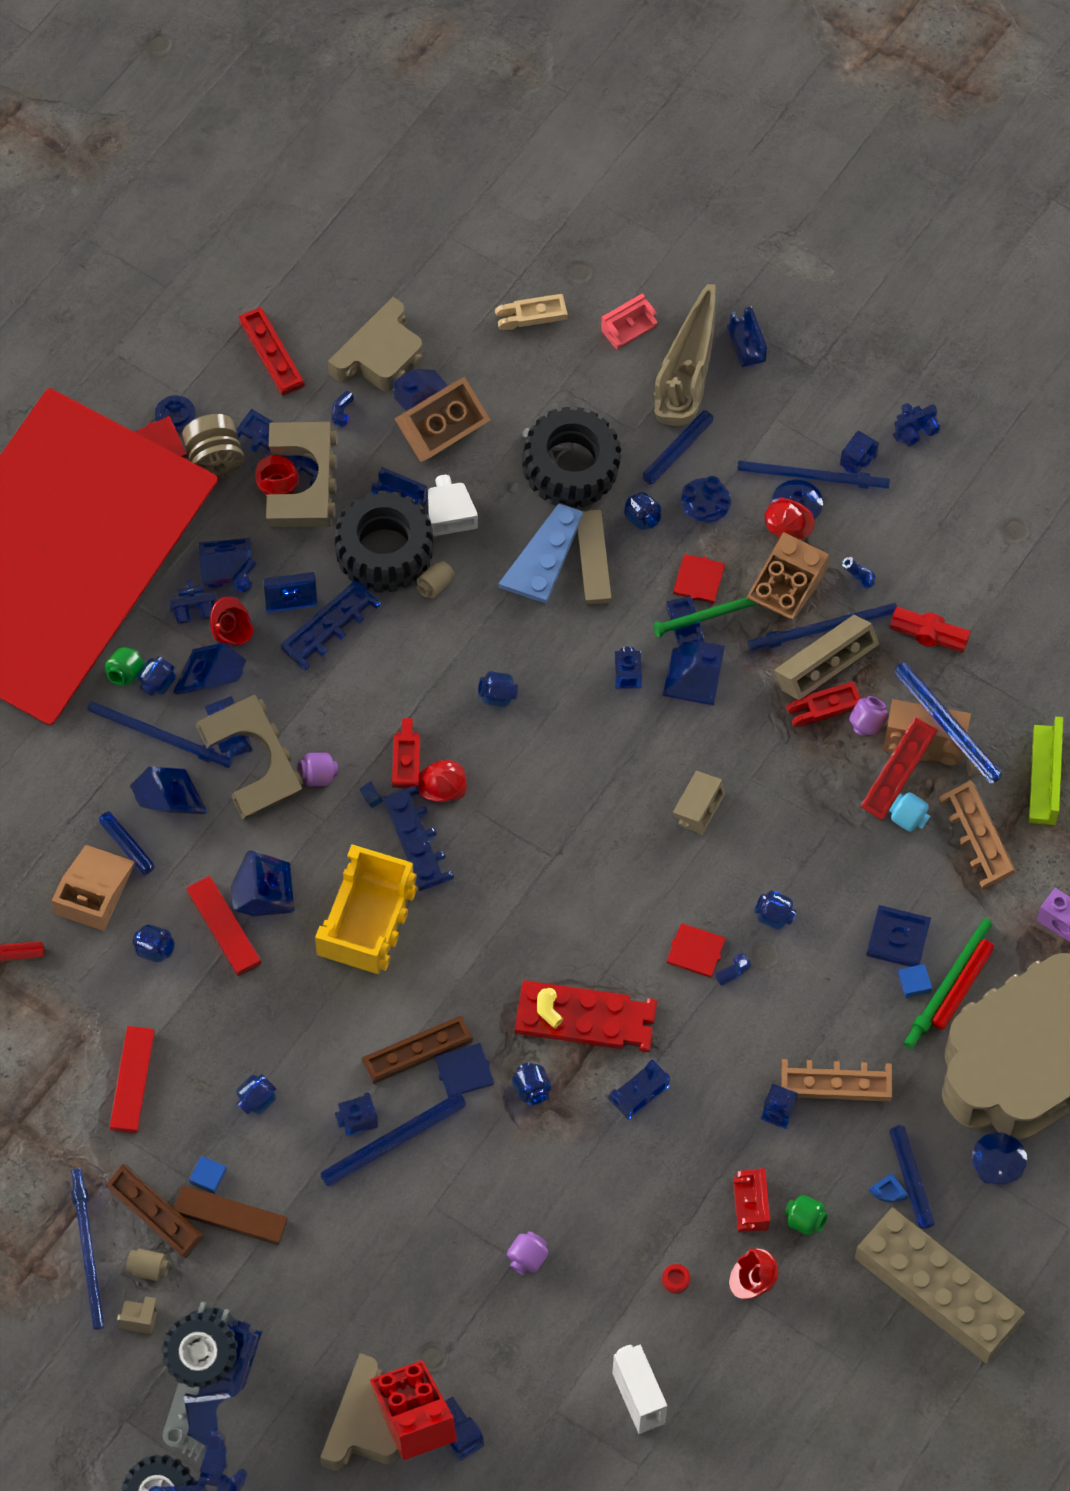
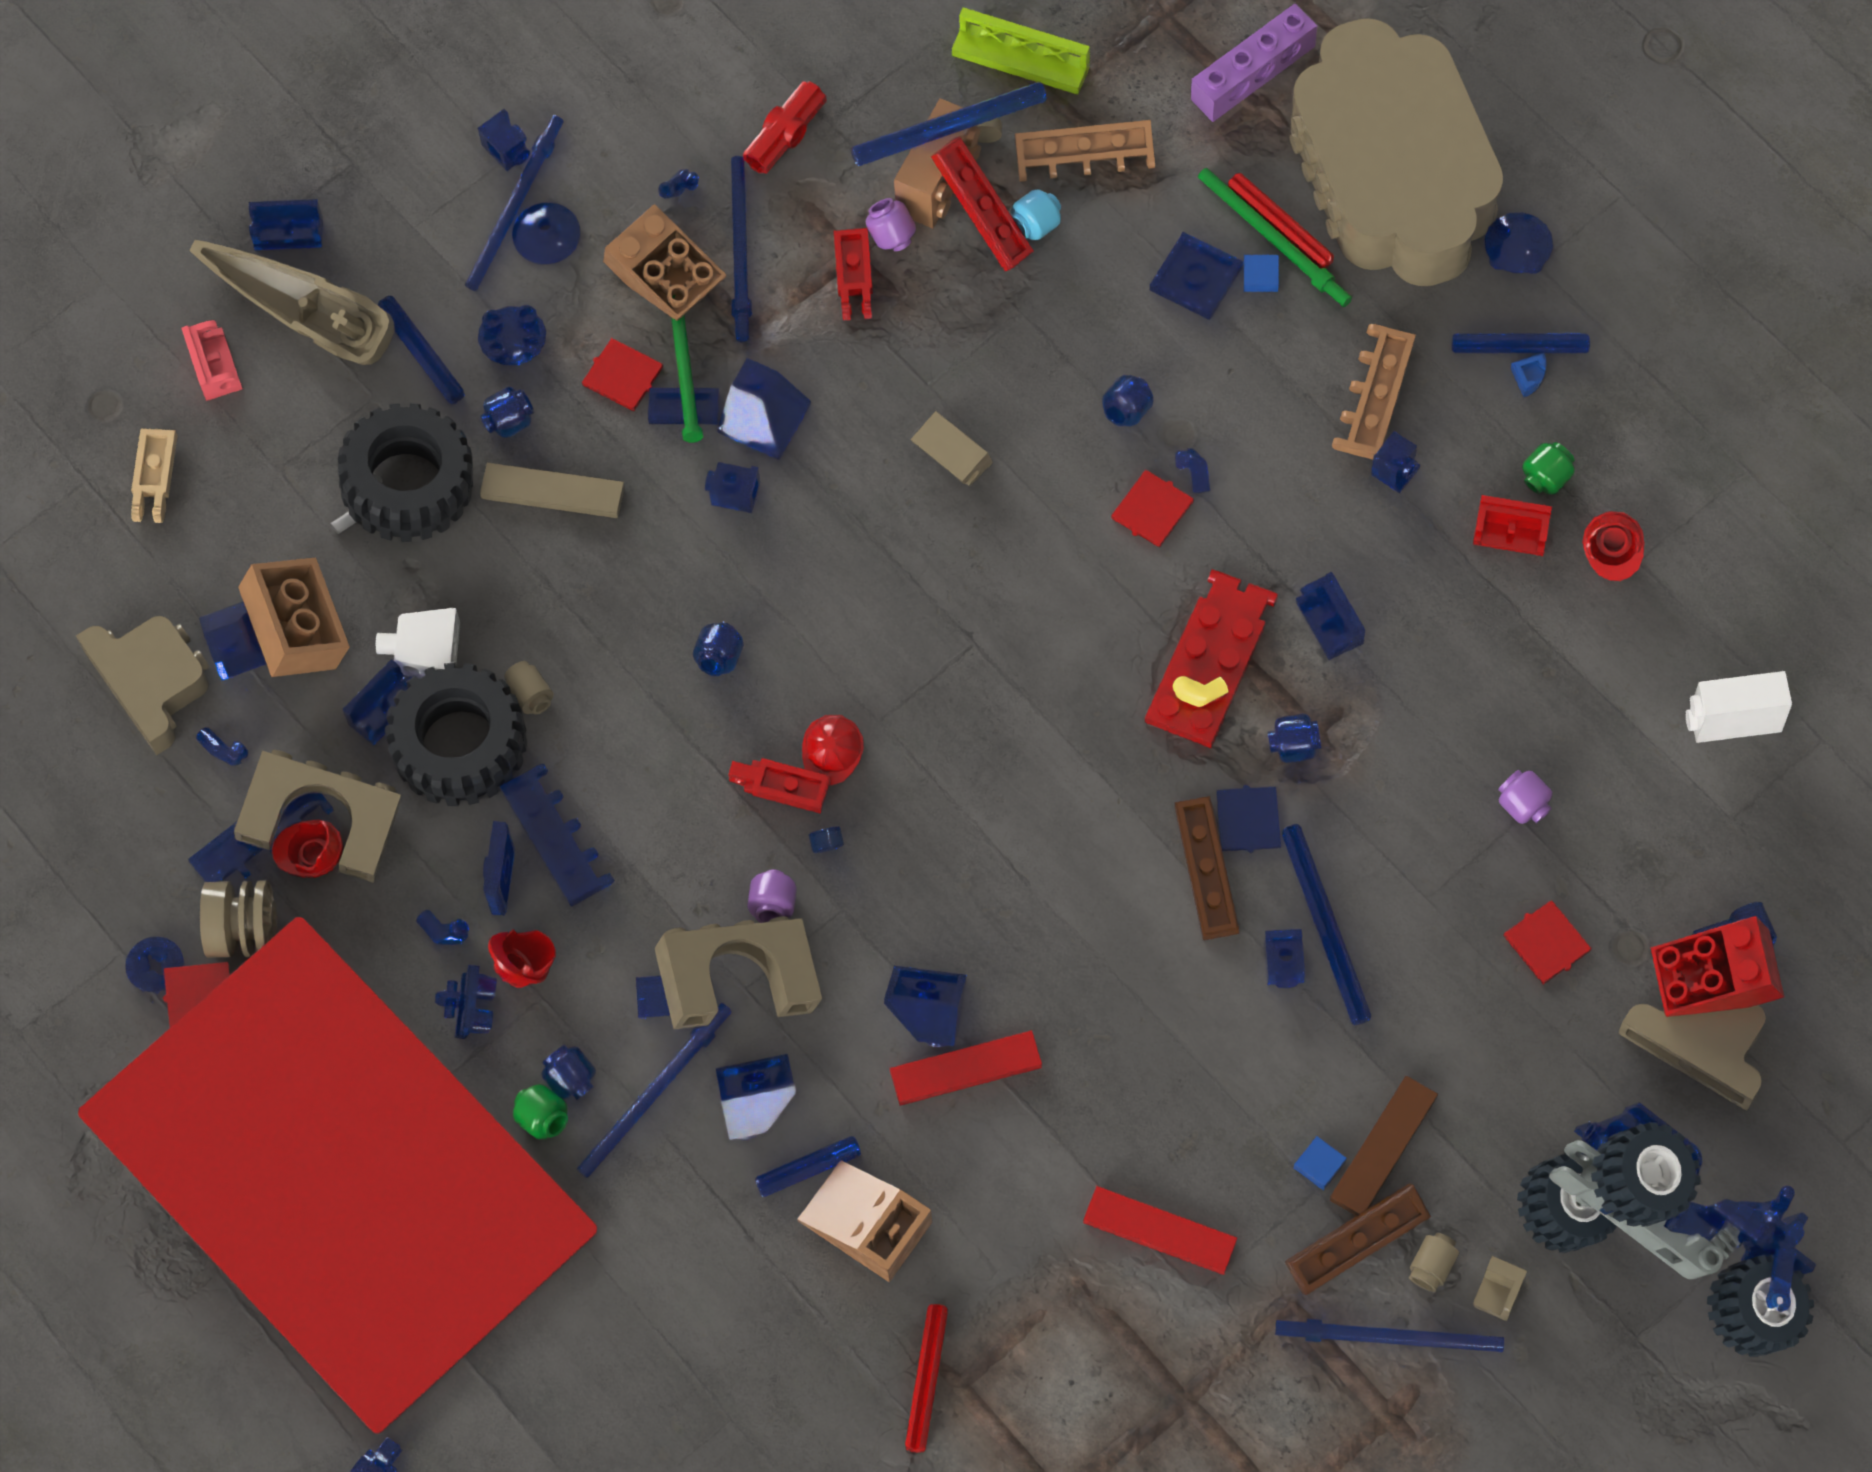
camera: 70 degrees left, 5 degrees up
(153, 943) = (972, 1159): clear blue head -> none
(210, 668) = (581, 1003): clear blue slope -> none
(222, 560) = (412, 947): clear blue slope -> none
(256, 1094) = (1226, 1075): clear blue head -> none
(271, 351) = (95, 819): red tile -> none
(367, 910) = (1003, 880): yellow windscreen -> none
(415, 839) = (905, 802): clear blue hinge -> none
(420, 1297) = (1547, 942): none -> red piece
(542, 559) = (535, 547): medium blue wing -> none
(676, 1278) = (1591, 639): red tile -> none
(789, 517) = (578, 243): red piece -> none
(826, 657) = (792, 250): dark tan brick -> none
(914, 420) = (483, 50): clear blue hips -> none
(939, 1285) = (1671, 347): dark tan brick -> none

